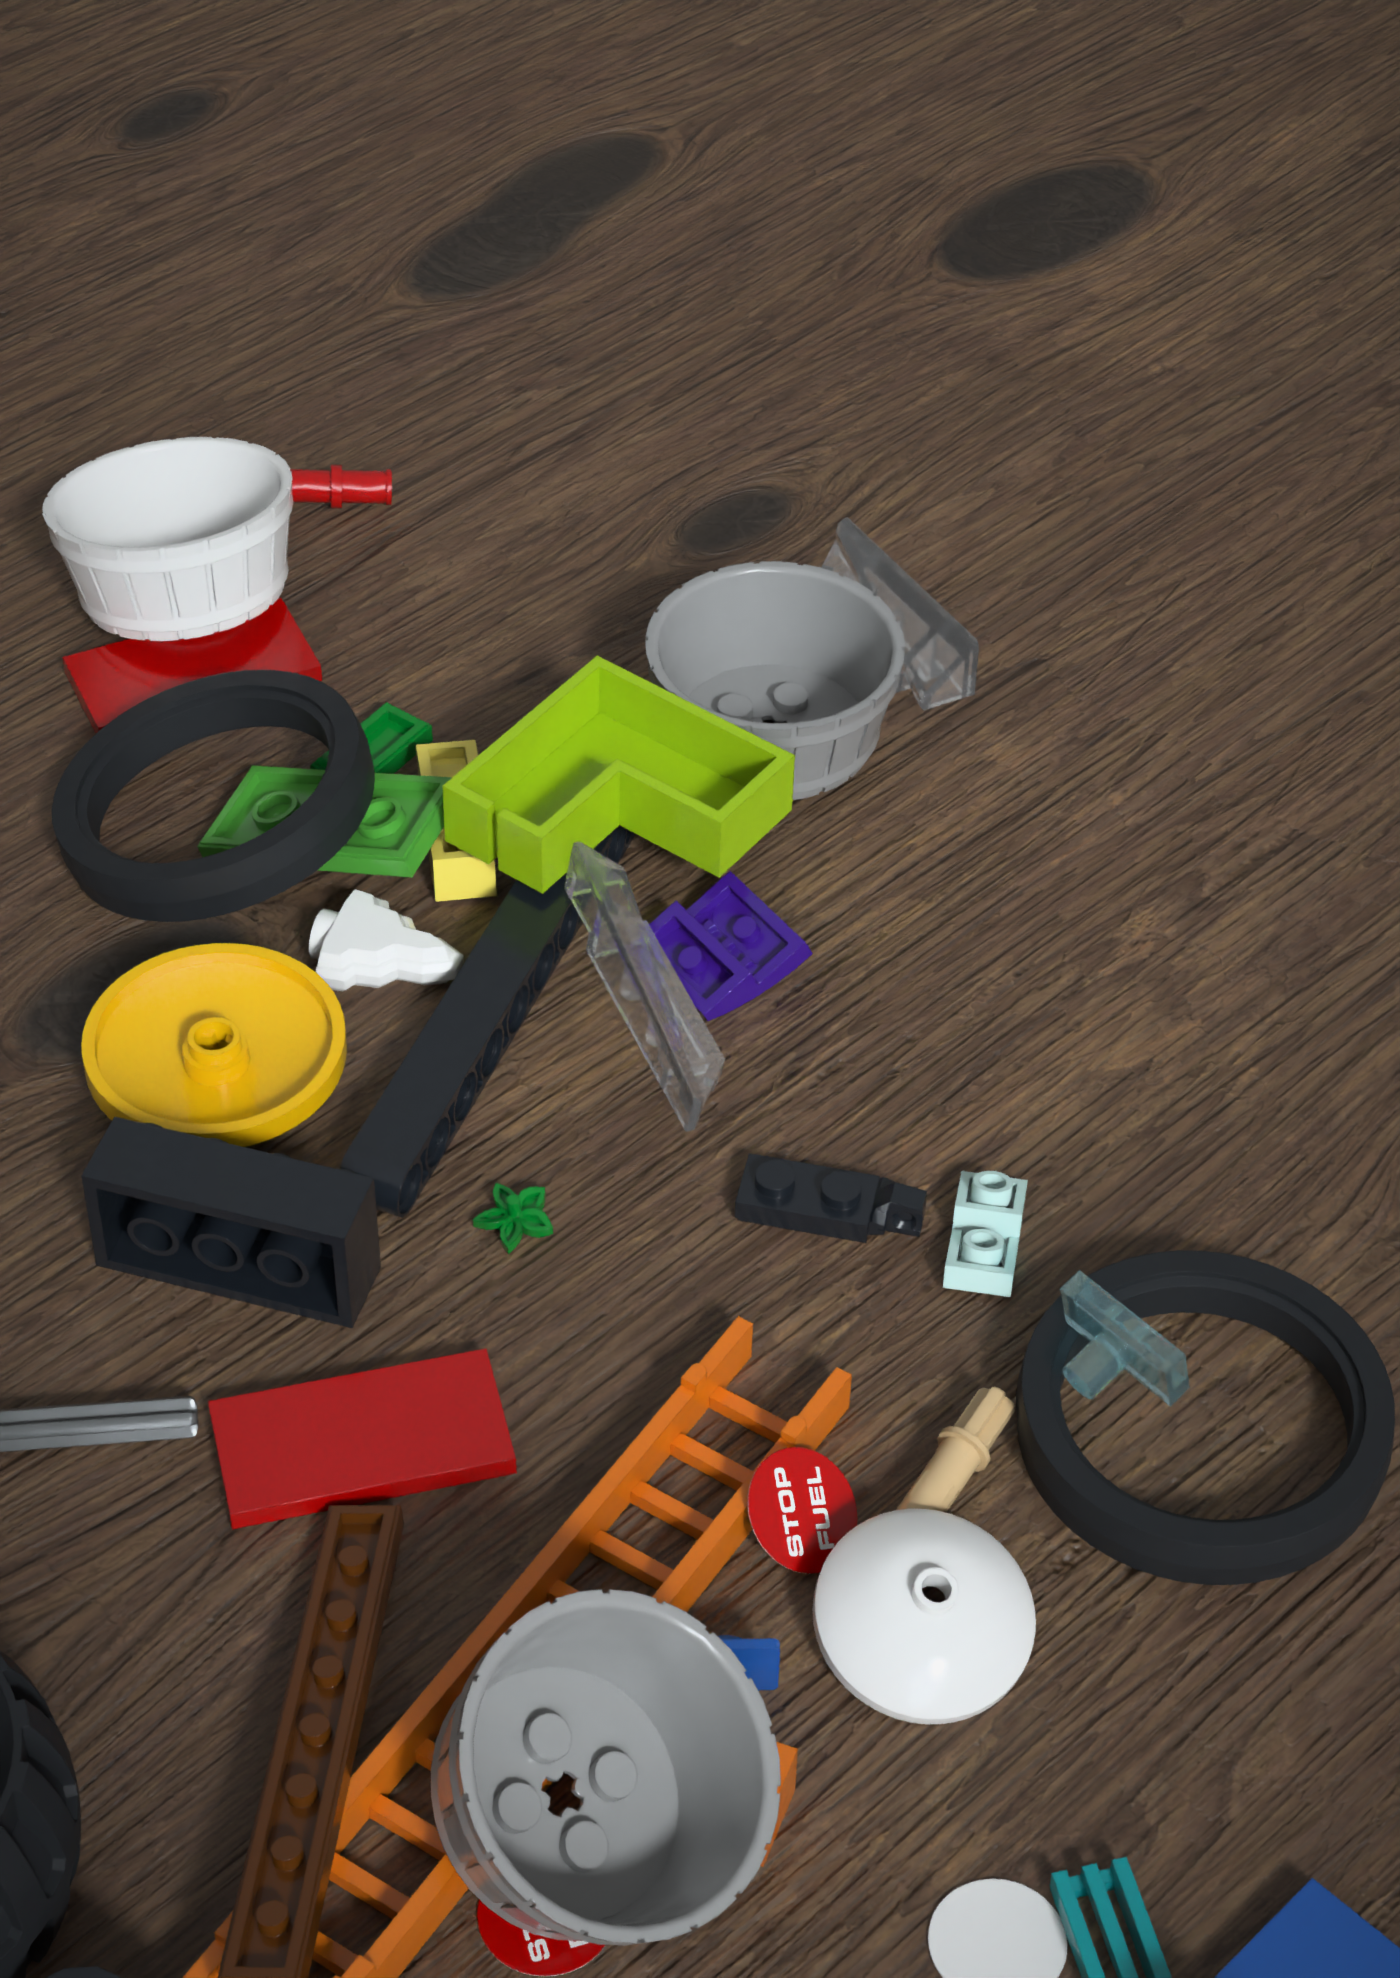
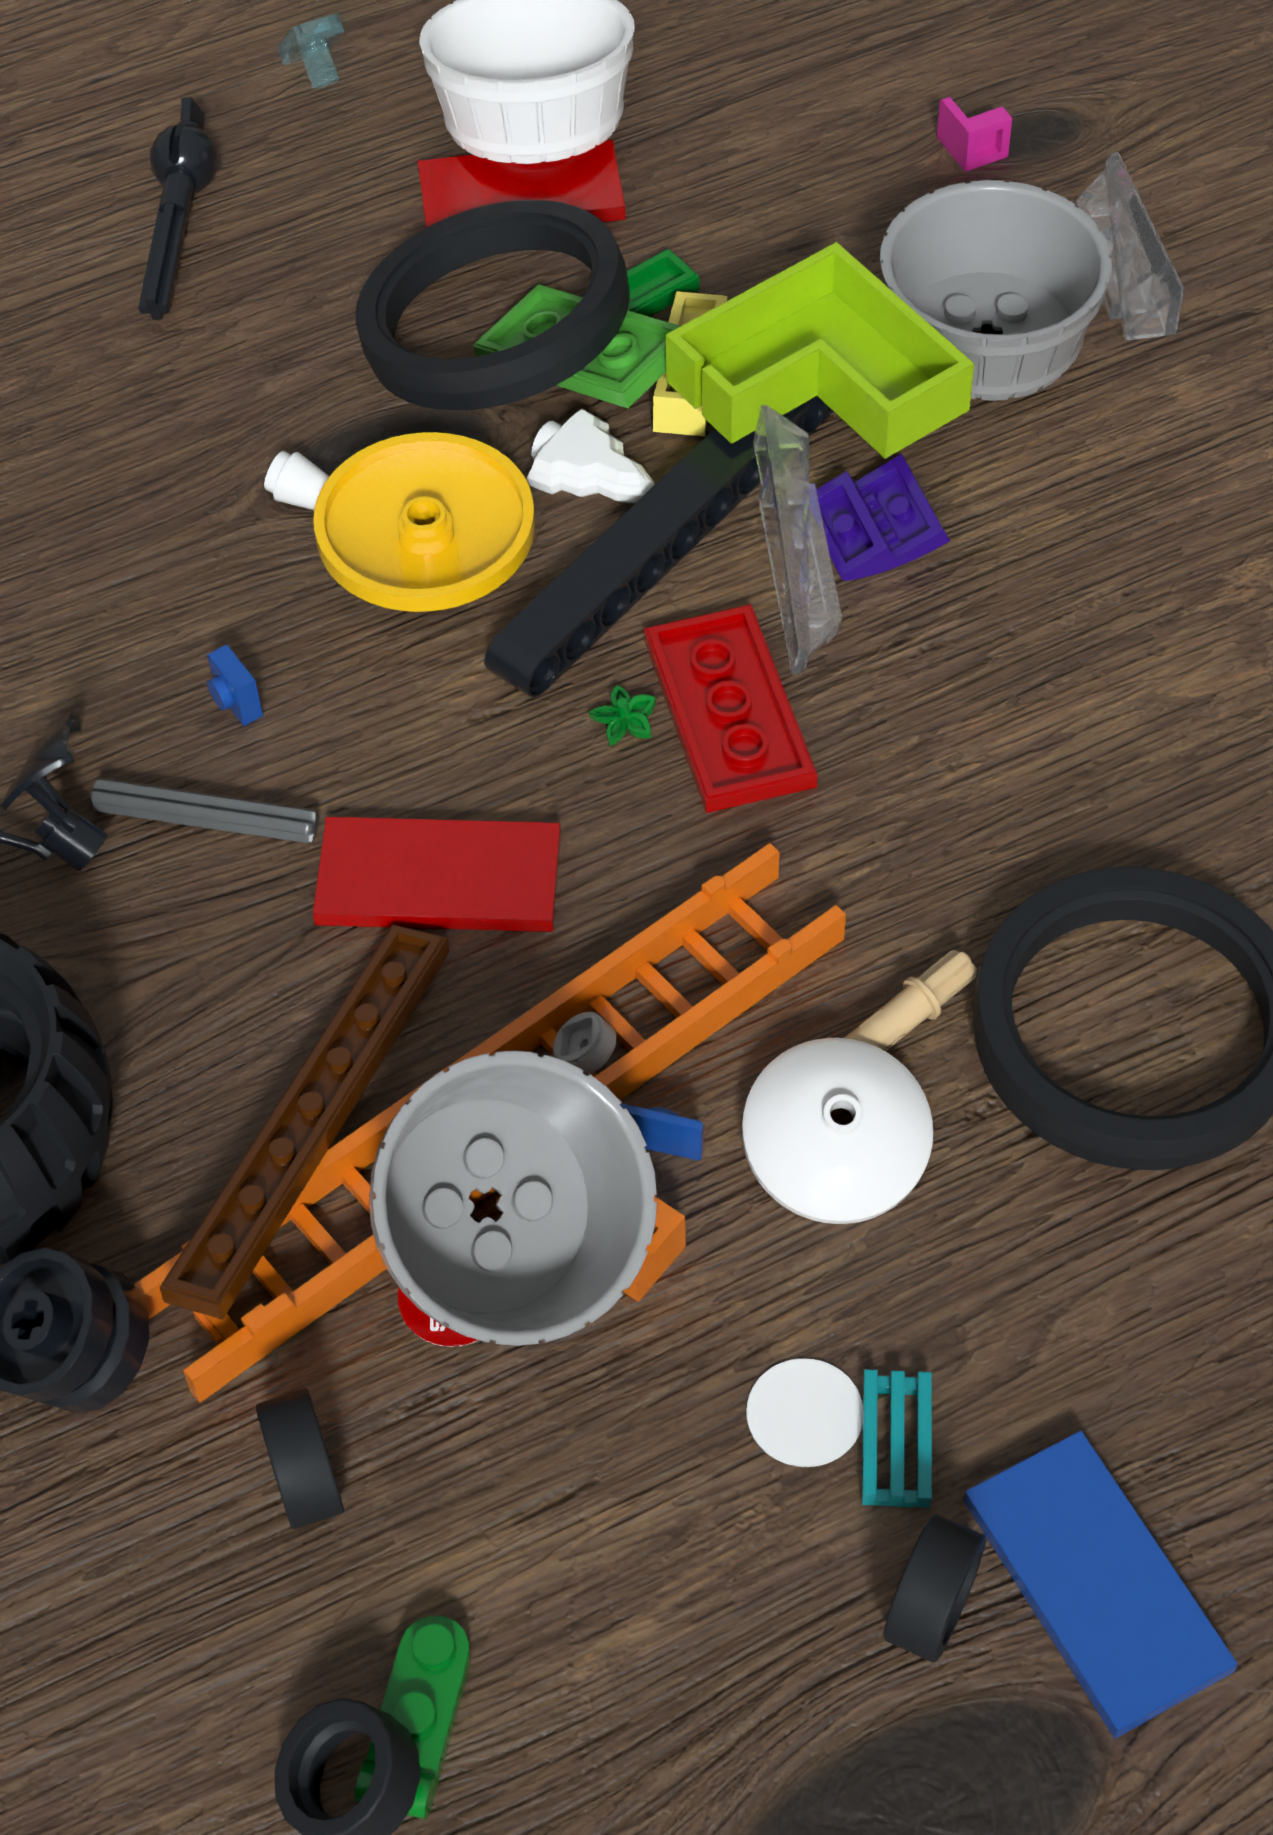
camera: 20 degrees right, 10 degrees up
(44, 1033) = (294, 480): none -> white cone
(46, 1276) = (233, 686): none -> blue plate
(233, 1221) = (387, 672): black brick -> none
(341, 486) = (691, 47): red pin -> none
(607, 1570) = (585, 1042): none -> light grey tile
(631, 1183) = (729, 708): none -> red tile
(682, 531) = (974, 139): none -> dark pink panel
(800, 1508) = (765, 1015): red sticker -> none
(826, 1200) = (885, 758): black hinge -> none
(985, 1233) = (1010, 817): light aqua slope -> none
(1117, 1344) = (1071, 942): clear light blue tile -> none

